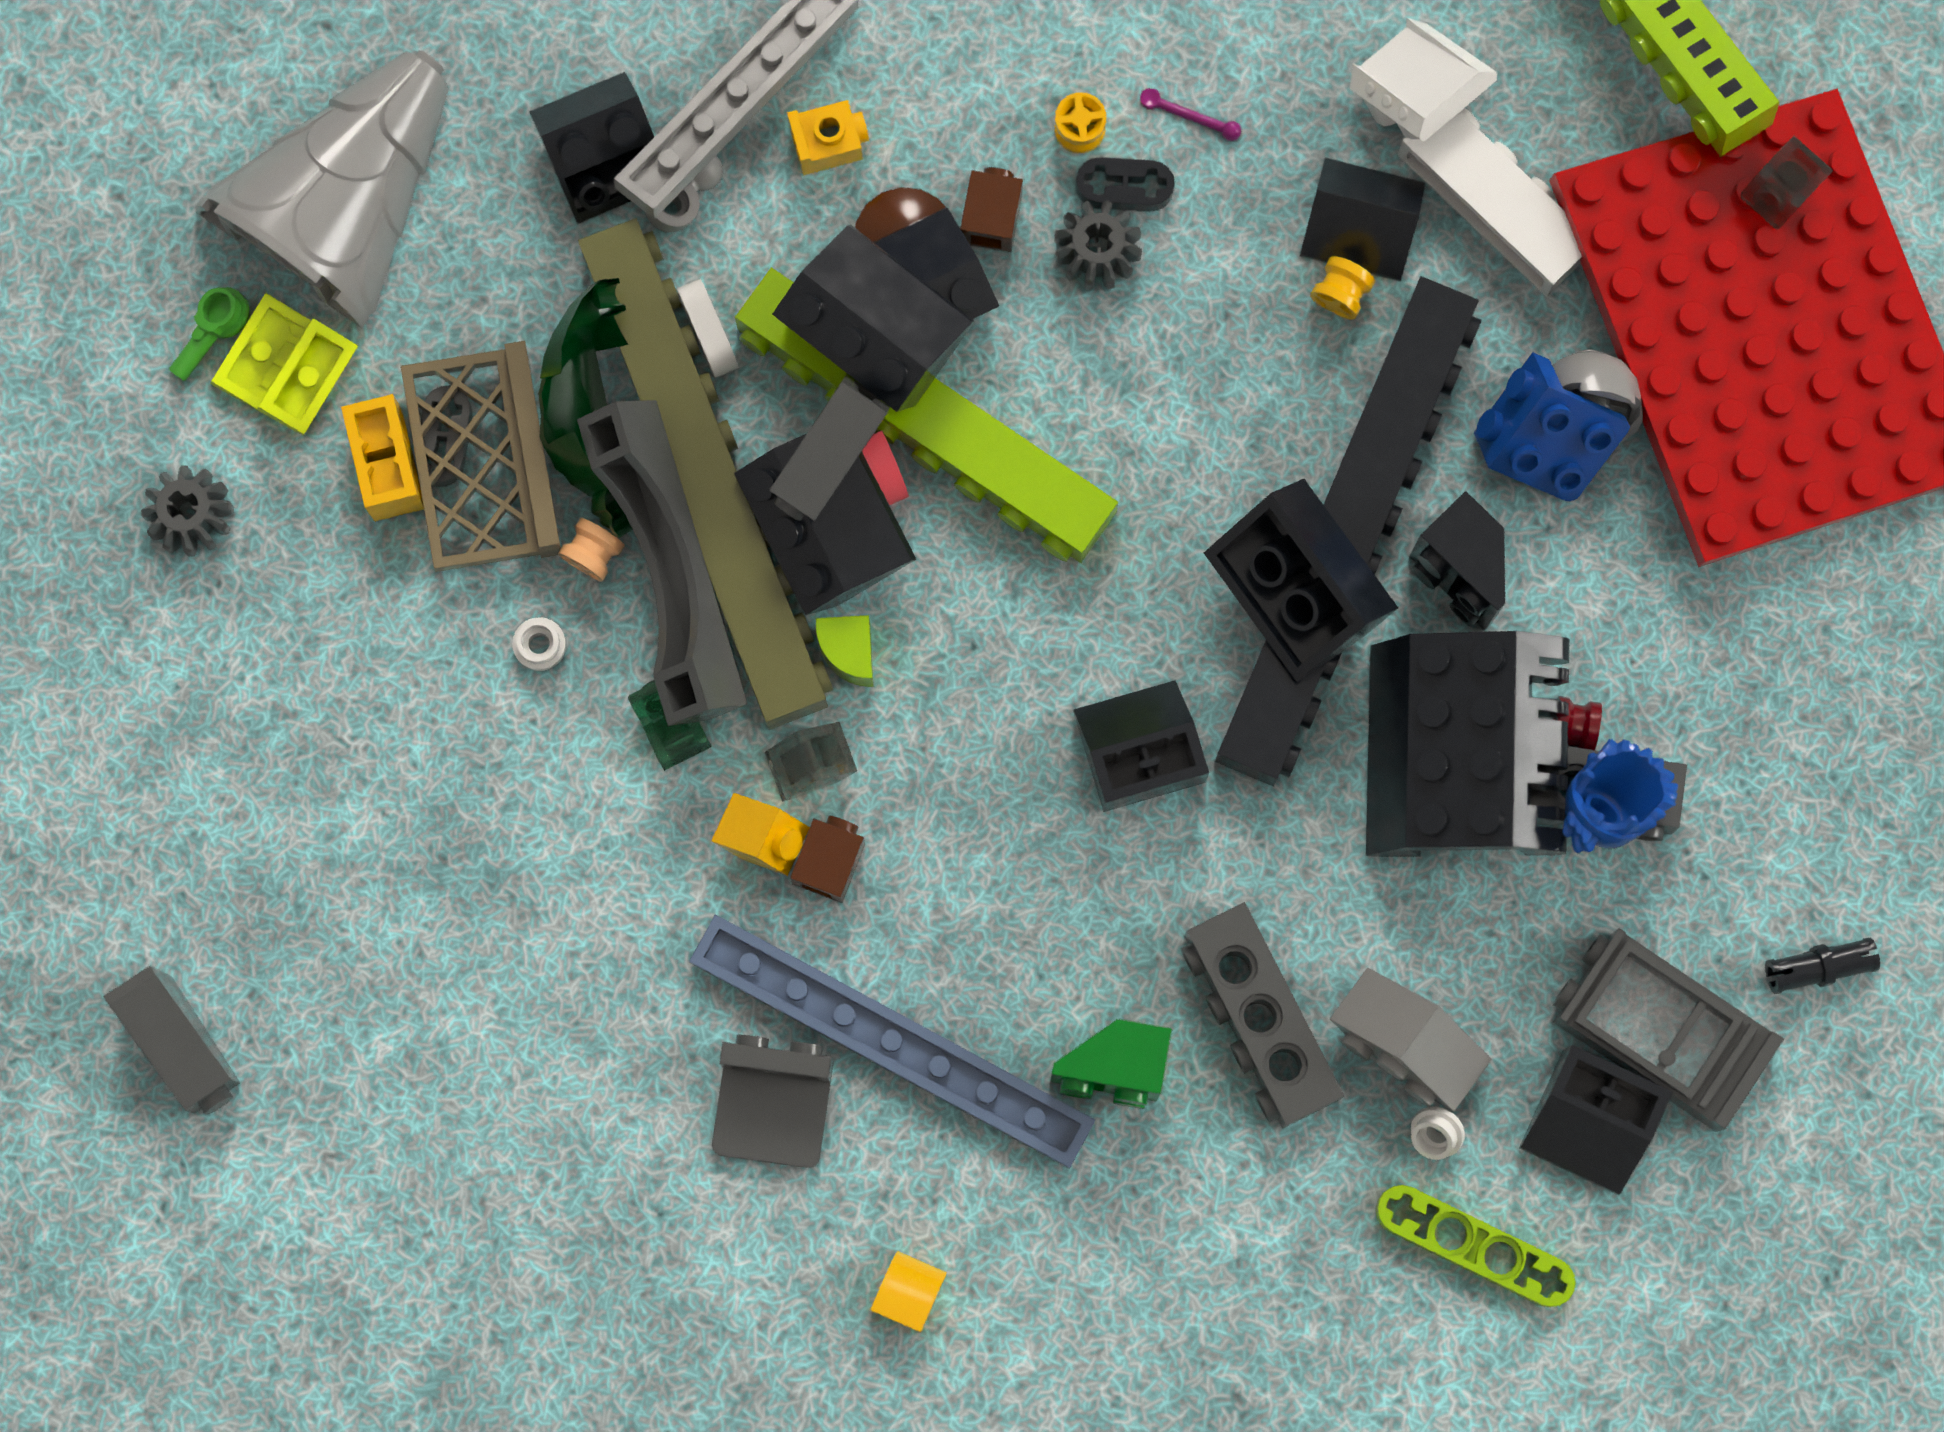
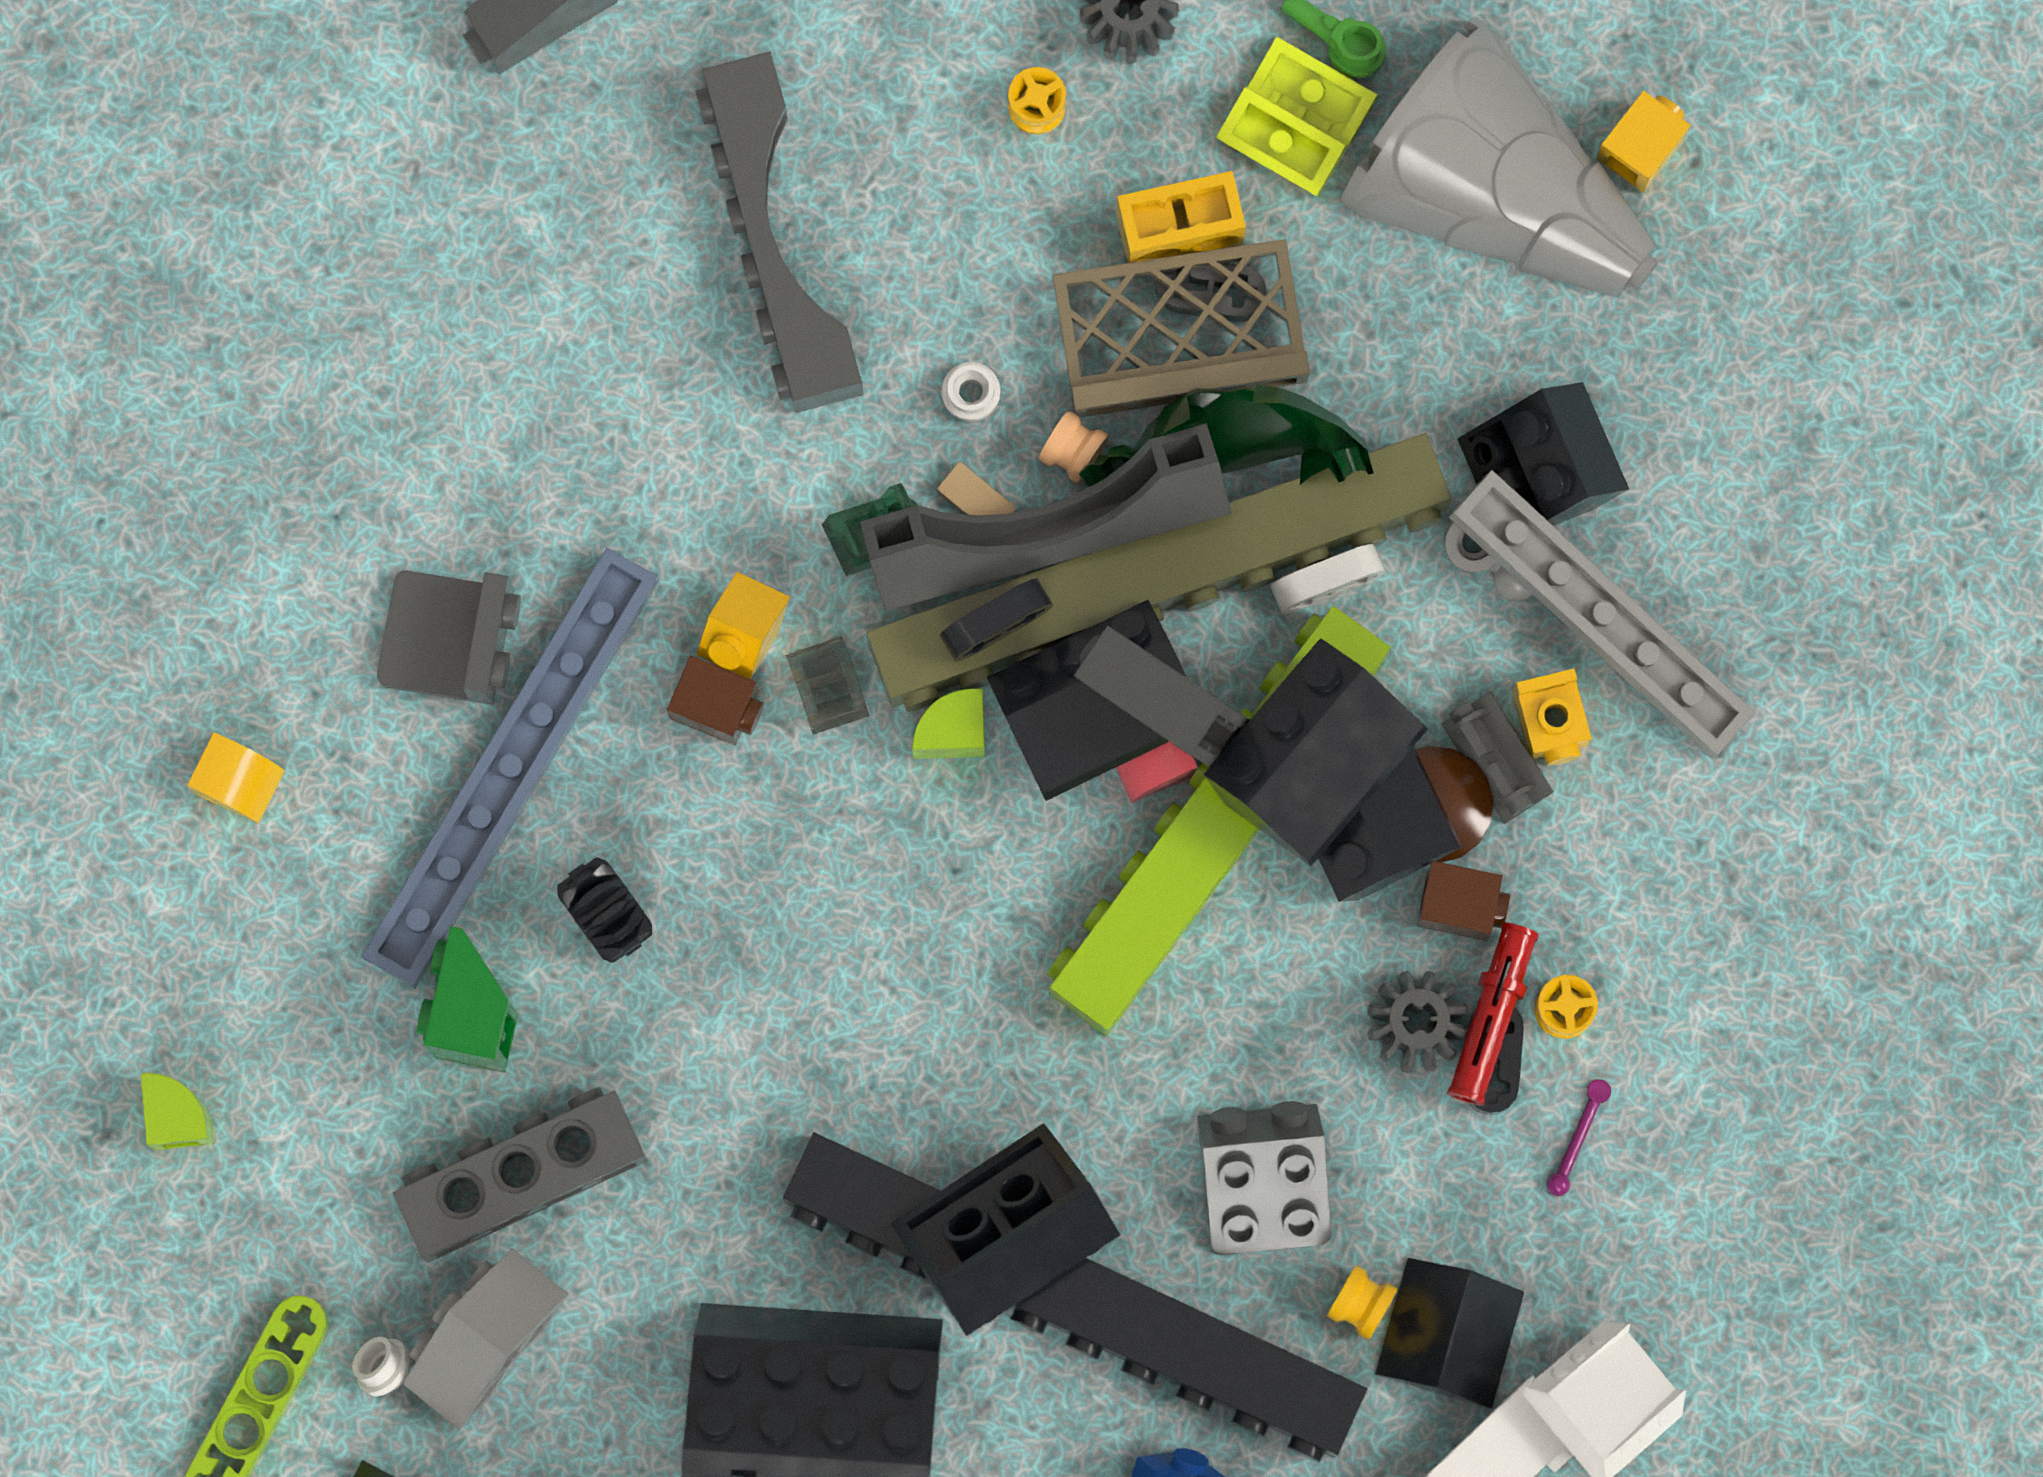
camera: 90 degrees right, 0 degrees up
(263, 581) = (1033, 89): none -> yellow wheel
(308, 63) = (1644, 140): none -> yellow brick
(500, 784) = (812, 345): none -> dark grey arch
(635, 638) = (972, 494): none -> tan piece
(756, 602) = (996, 619): none -> black beam
(850, 187) = (1490, 740): none -> dark grey hinge
(1023, 947) = (604, 909): none -> black gear
(1032, 163) = (1513, 947): none -> red pin
(1141, 745) = (831, 1048): black slope -> none
(1219, 1331) = (173, 1114): none -> lime brick
(1236, 370) = (1265, 1178): none -> bracket
(1465, 559) = (1032, 1425): black slope -> none

